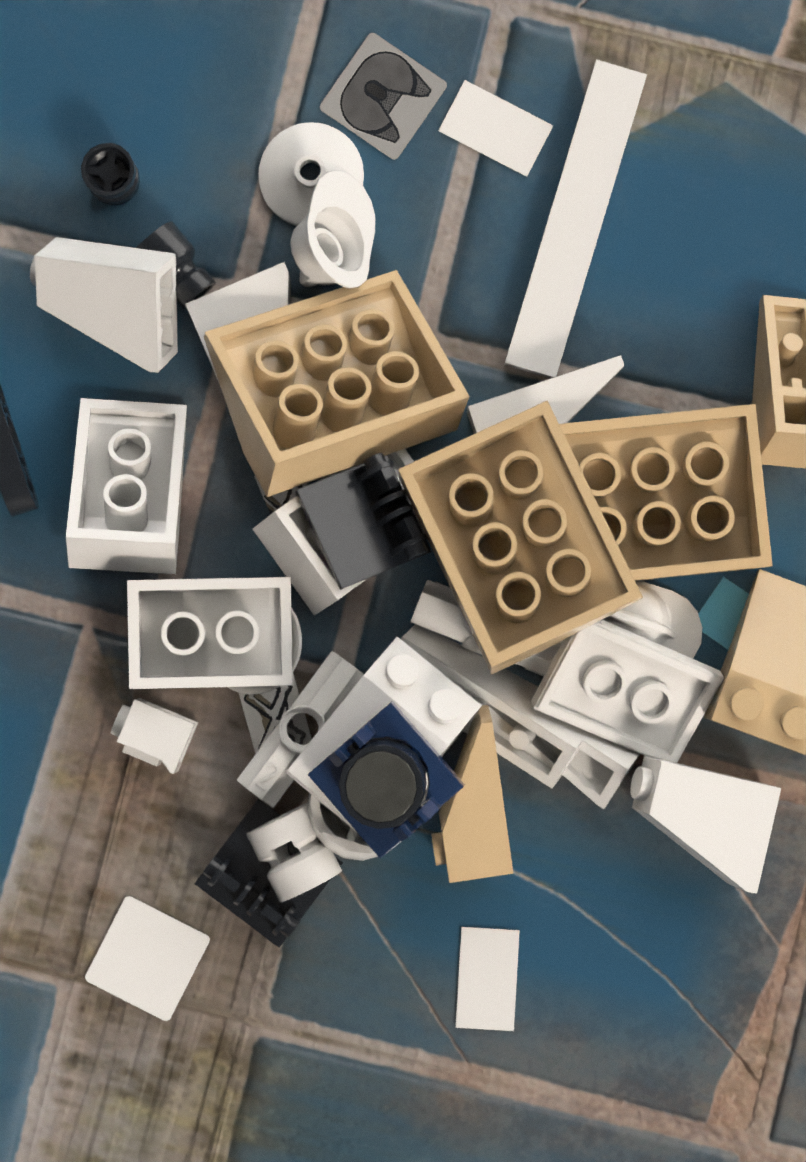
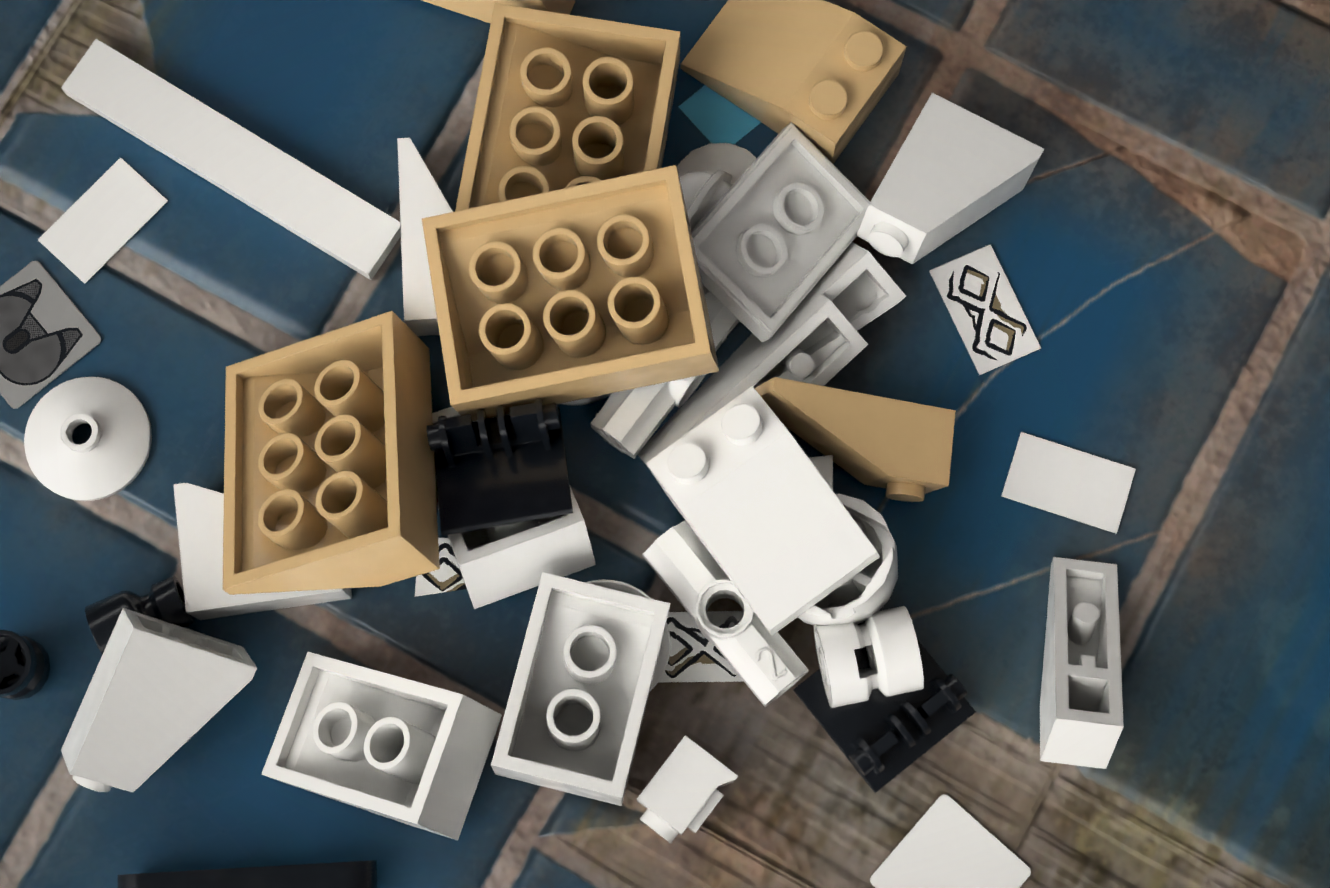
camera: 75 degrees left, 10 degrees down
(336, 235) = (163, 424): white piece -> none
(338, 1022) = (1081, 665): none -> white slope
(385, 780) = (814, 510): piece -> none
(615, 876) = (985, 309): none -> white sticker

